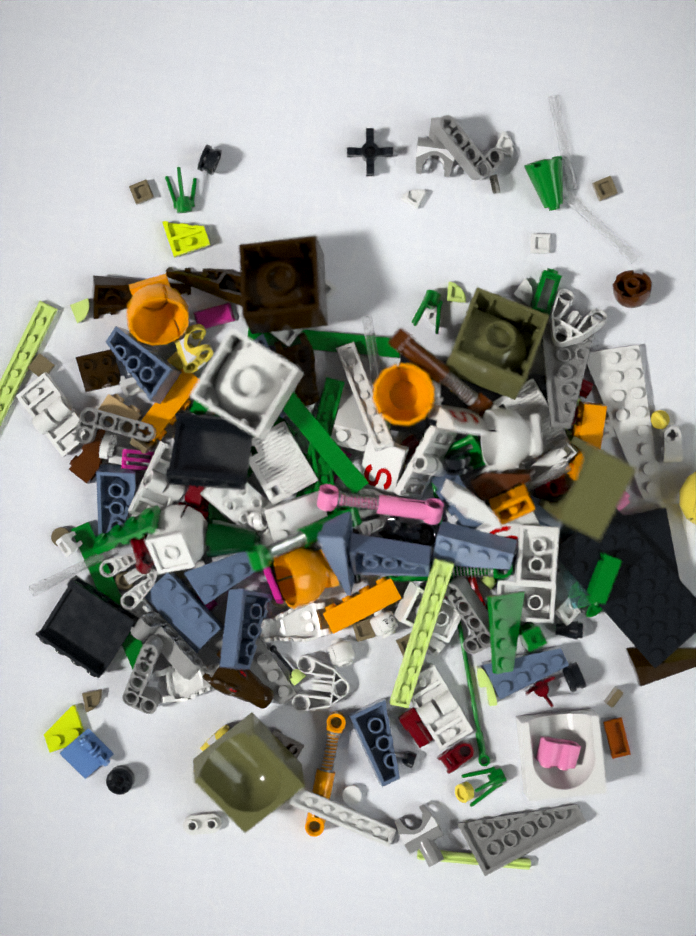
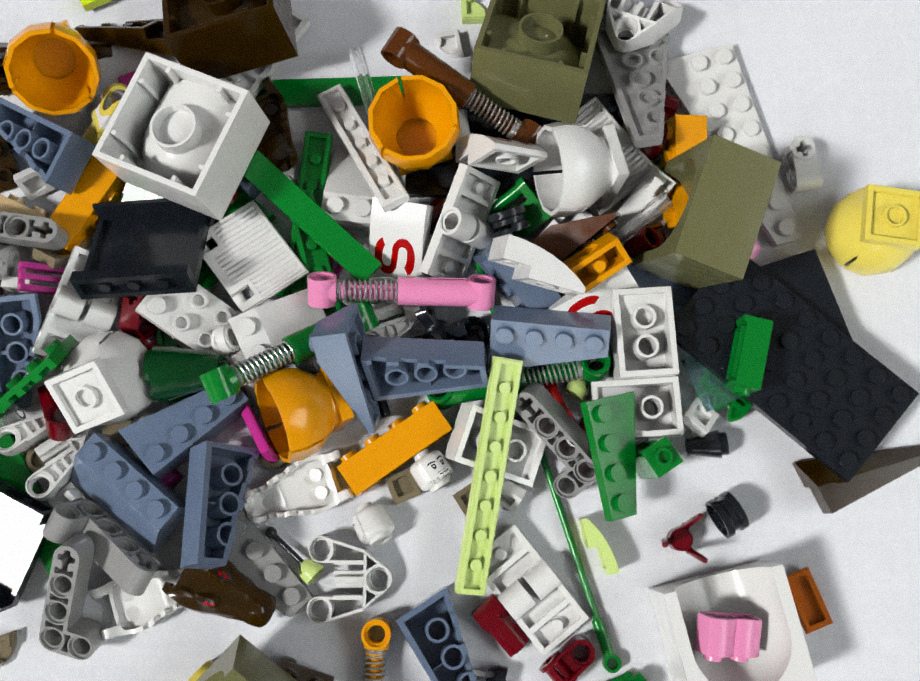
camera: 10 degrees left, 10 degrees down
(430, 300) = (440, 21): green plant -> none
(527, 670) = (657, 512): sand blue wedge -> none
(613, 697) = (791, 537): dark tan tile -> none
(659, 419) = (778, 137): light yellow tile -> none

